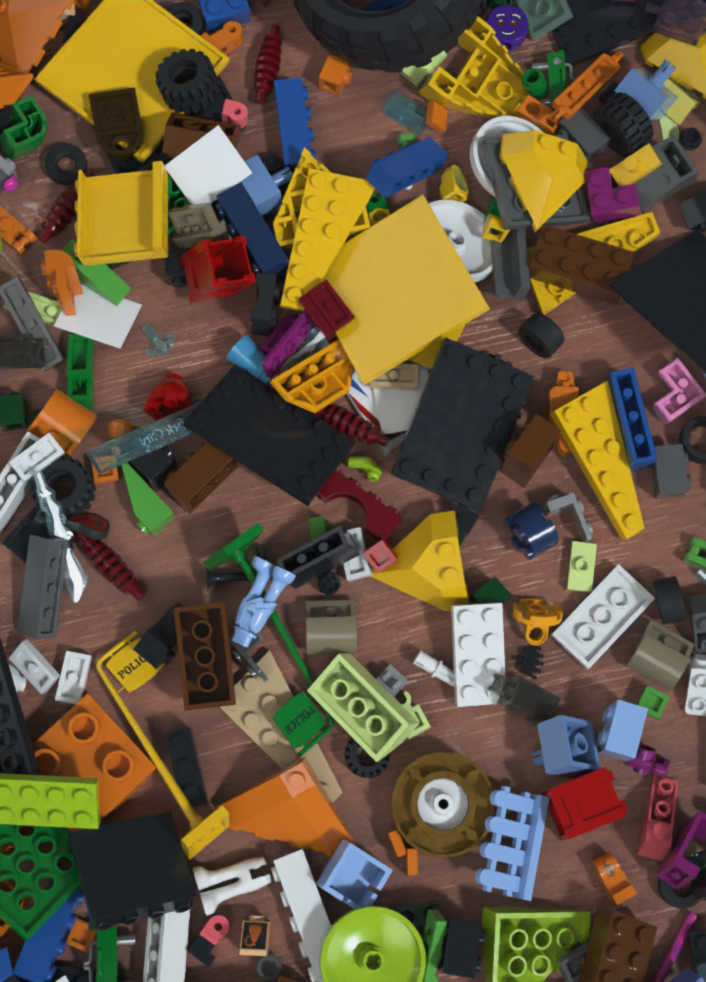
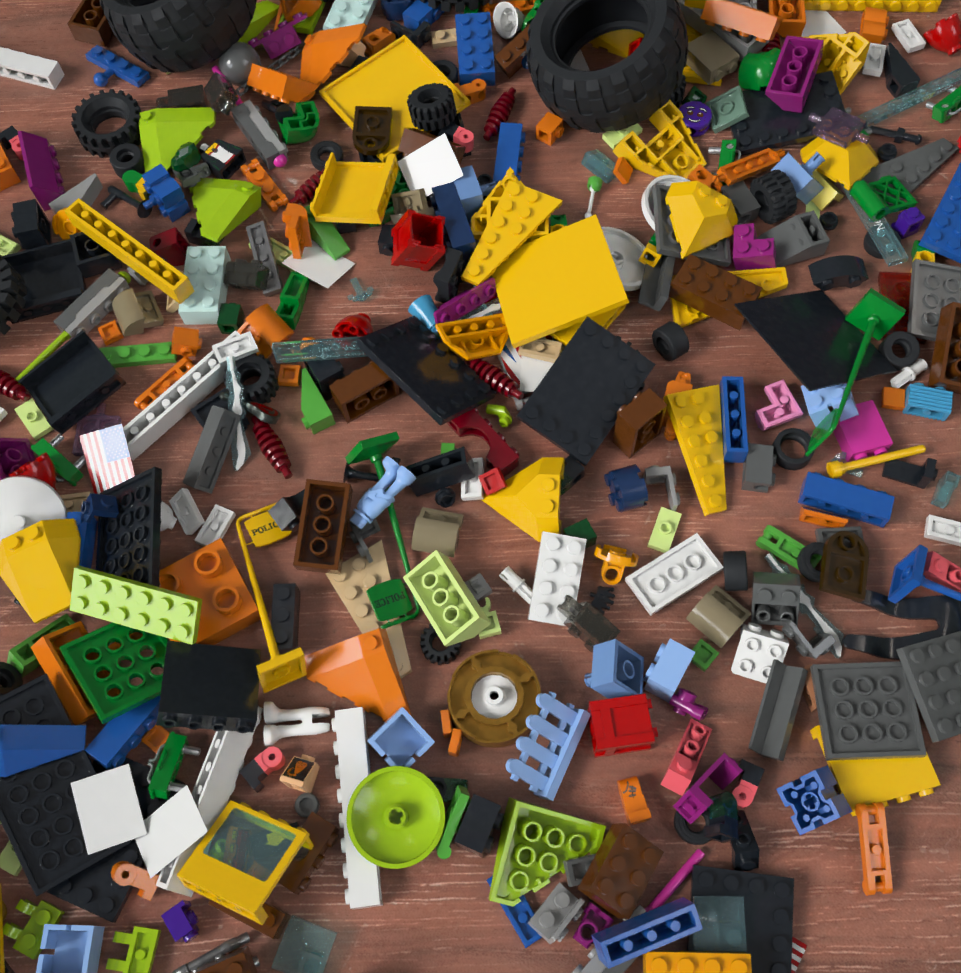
camera: 20 degrees right, 10 degrees down
(326, 309) = (497, 285): dark red plate -> none
(406, 166) = (588, 195): blue brick -> none
(453, 185) = (624, 219): yellow rock -> none
(534, 84) = (707, 157): green brick -> none
(636, 166) = (778, 227): yellow tile -> none

